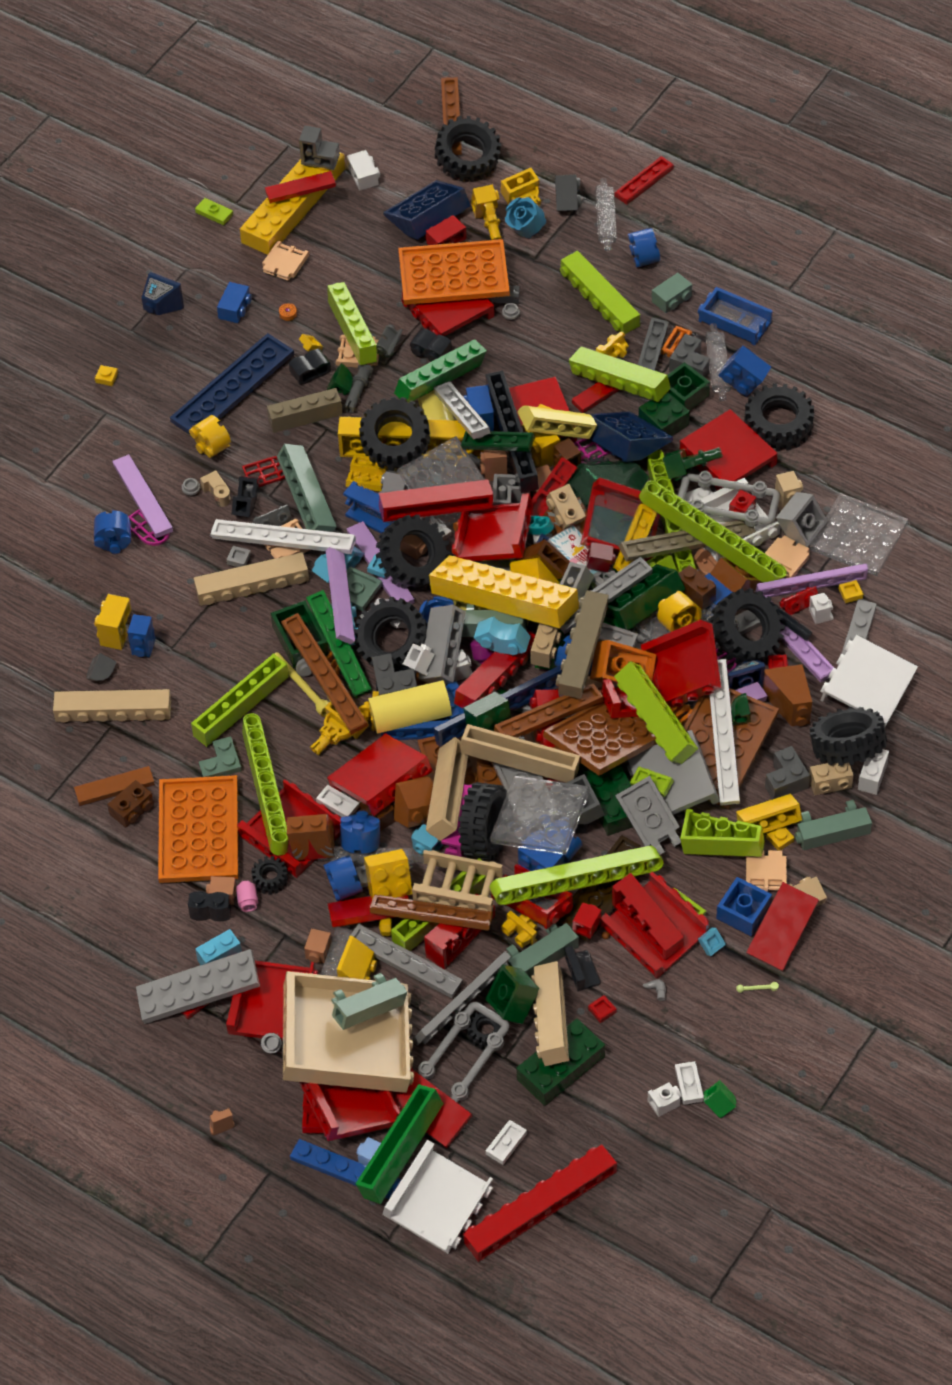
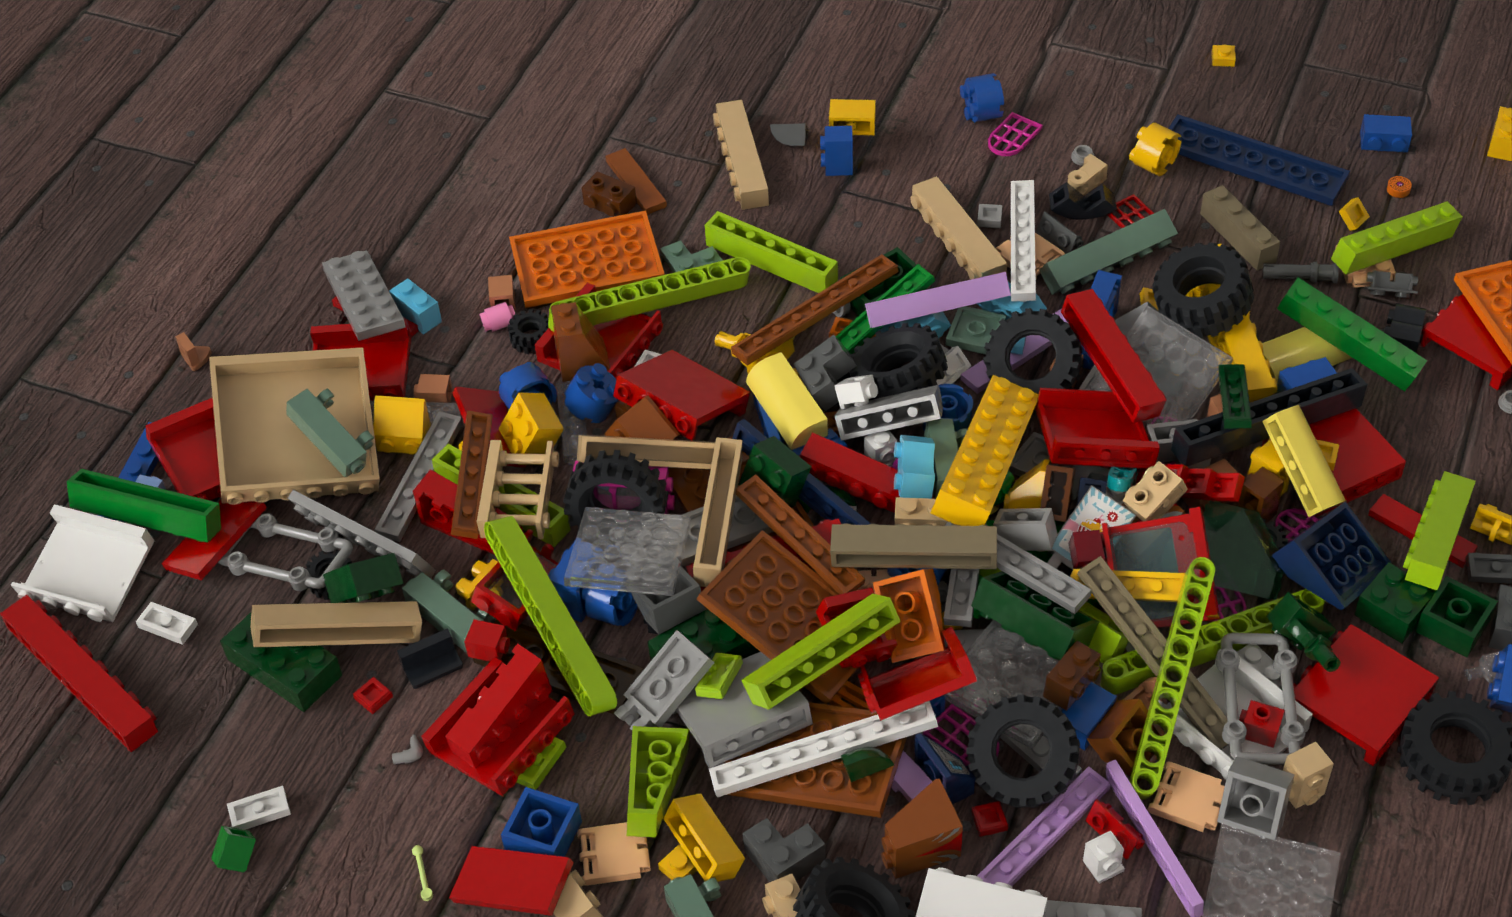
camera: 80 degrees right, 5 degrees down
(142, 496) = (1052, 118): lavender tile -> none
(161, 295) = (1357, 65): dark blue slope -> none
(209, 906) = (476, 285): black brick -> none
(283, 261) = (1480, 166): light nougat plate -> none
(310, 366) = (1315, 220): black brick -> none
(341, 380) = (1305, 253): dark green brick -> none
(461, 410) = (1278, 355): light grey plate -> none
(663, 1104) = (231, 781): white brick -> none
(678, 611) = (1009, 656): yellow brick -> none
(711, 941) = (485, 801): medium azure plate -> none
(792, 623) = (1071, 805): black axle -> none
(850, 591) = (1153, 895): yellow plate -> none

